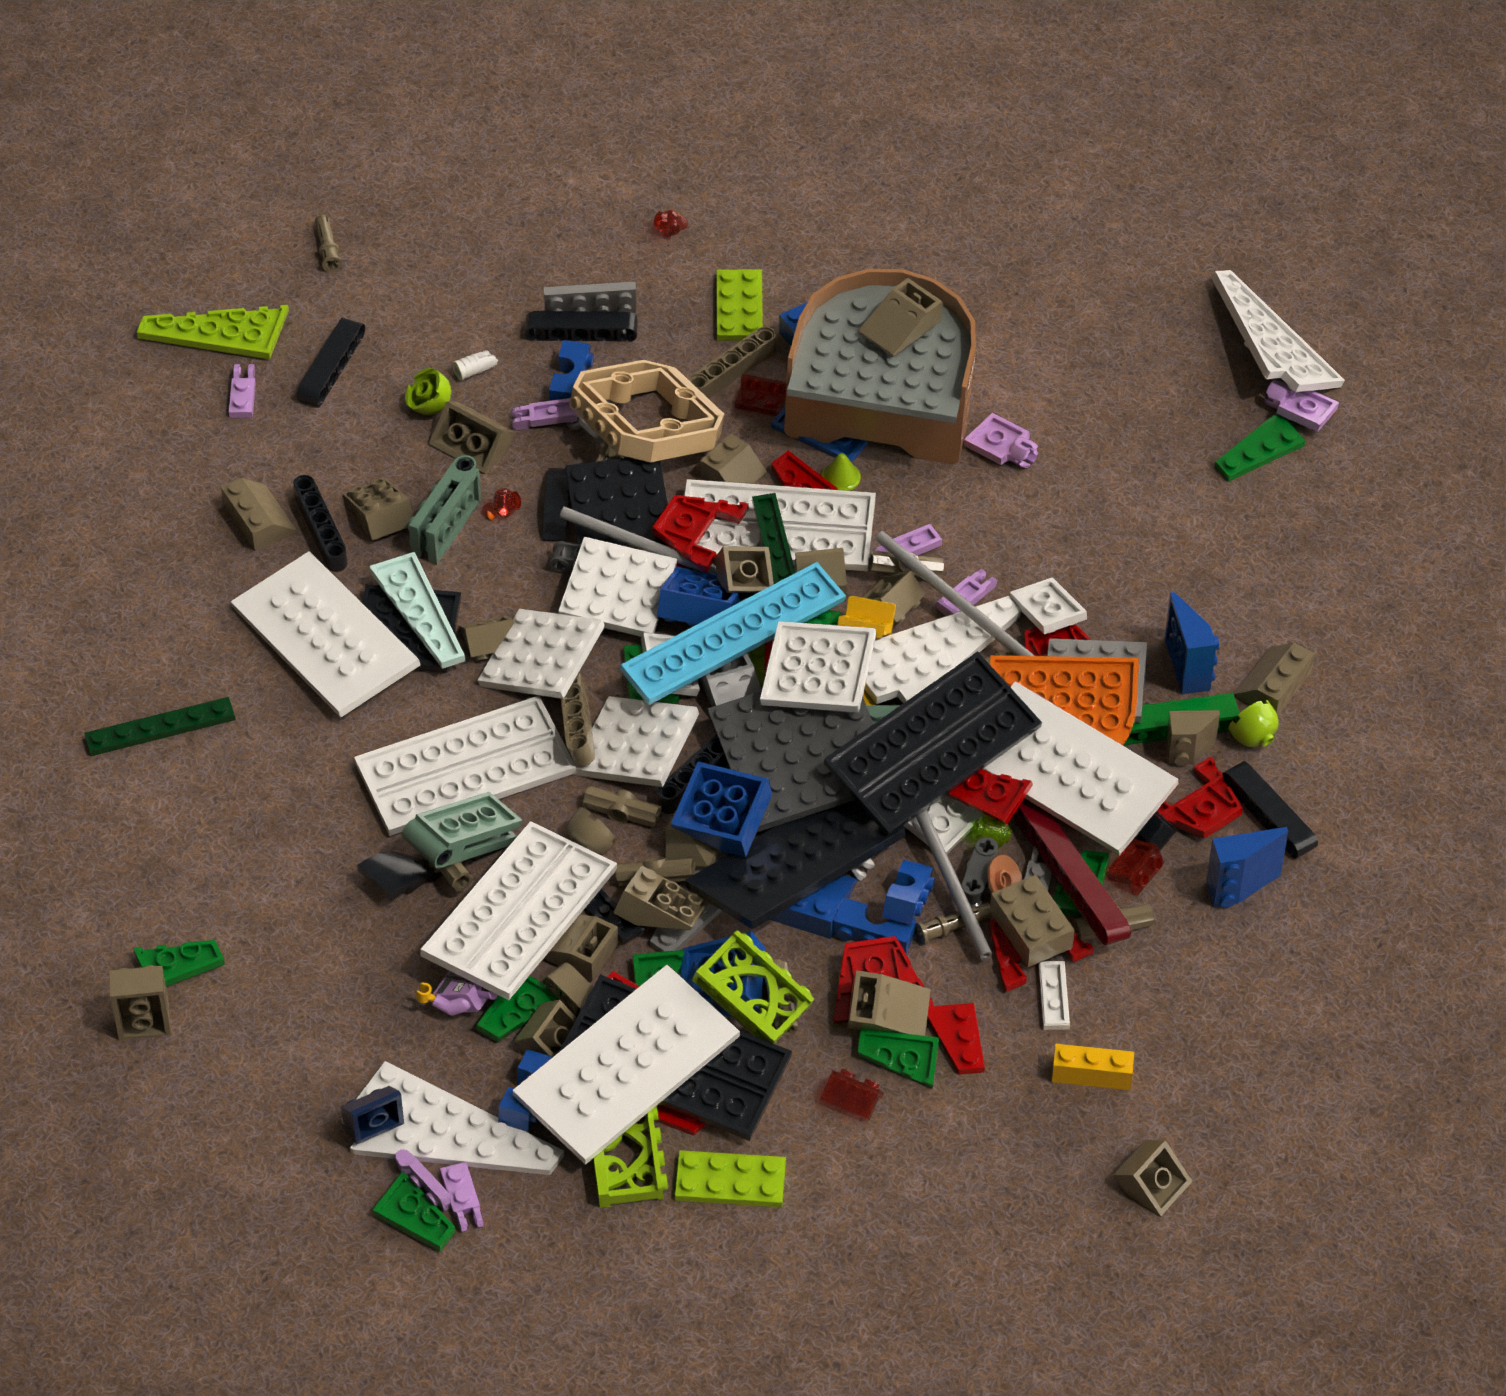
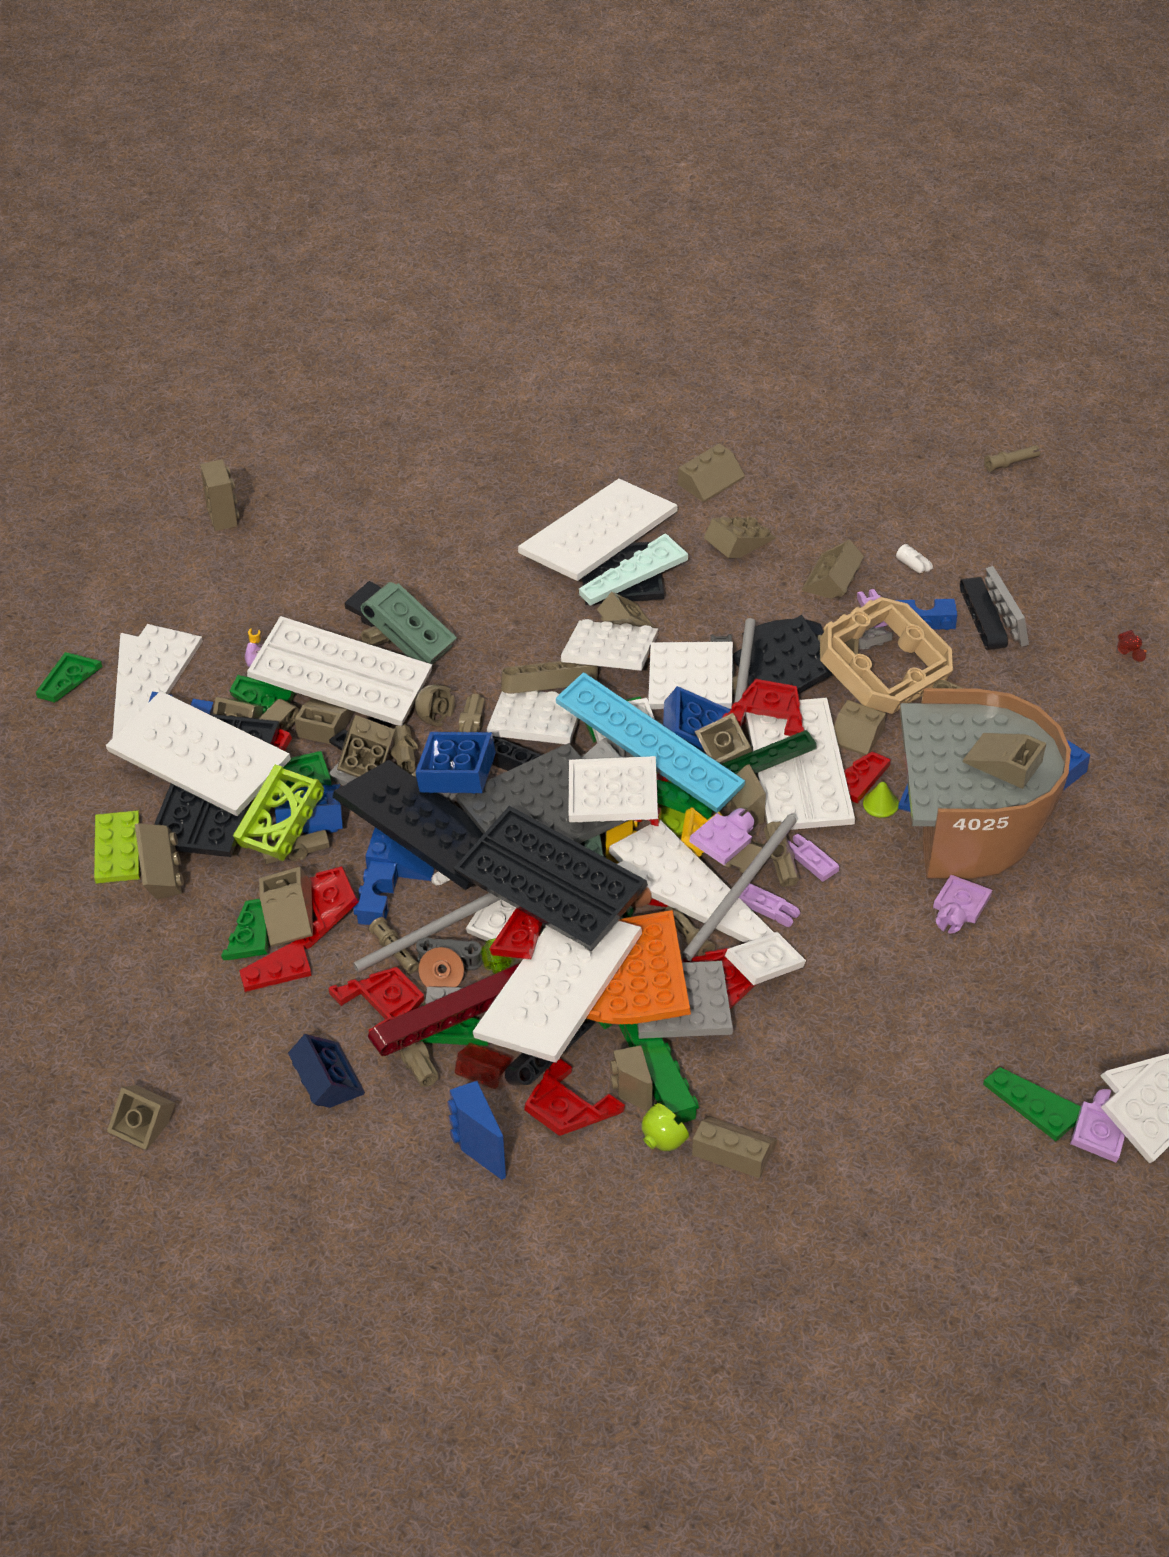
camera: 80 degrees right, 5 degrees down
(159, 726) = (491, 469): dark green plate -> none
(182, 961) = (274, 517): green wing -> none
(225, 330) = (892, 424): lime wing -> none
(242, 393) = (835, 445): lavender hinge -> none
(320, 523) = (710, 506): black beam -> none
(330, 361) = (883, 481): black beam -> none
(373, 1114) = (139, 627): dark blue slope -> none
(423, 1179) = (95, 675): lavender hinge -> none
(428, 392) = (866, 537): lime cylinder -> none
(446, 509) = (742, 565): sand green hinge -> none
(461, 1193) = (85, 700): lavender hinge -> none
(487, 753) = (490, 624): white plate -> none
(503, 505) = (767, 601): clear red animal -> none
(610, 1180) = (117, 794): lime fence -> none
(738, 303) = (1068, 703): lime plate -> none
(792, 1120) = (159, 860): none -> dark tan slope
(851, 1094) = (206, 905): clear red bracket -> none
(893, 594) = (724, 836): none -> lavender plate
(910, 892) = (391, 899): blue arch -> none
(1031, 920) = (391, 987): dark tan brick -> none
(1054, 995) = (333, 1025): white tile -> none
(1093, 1066) = (250, 1058): yellow brick -> none
(1123, 1004) = (325, 1071): none -> dark blue slope
(1190, 646) = (738, 1058): blue slope -> none
(1269, 808) = (570, 1156): black beam -> none

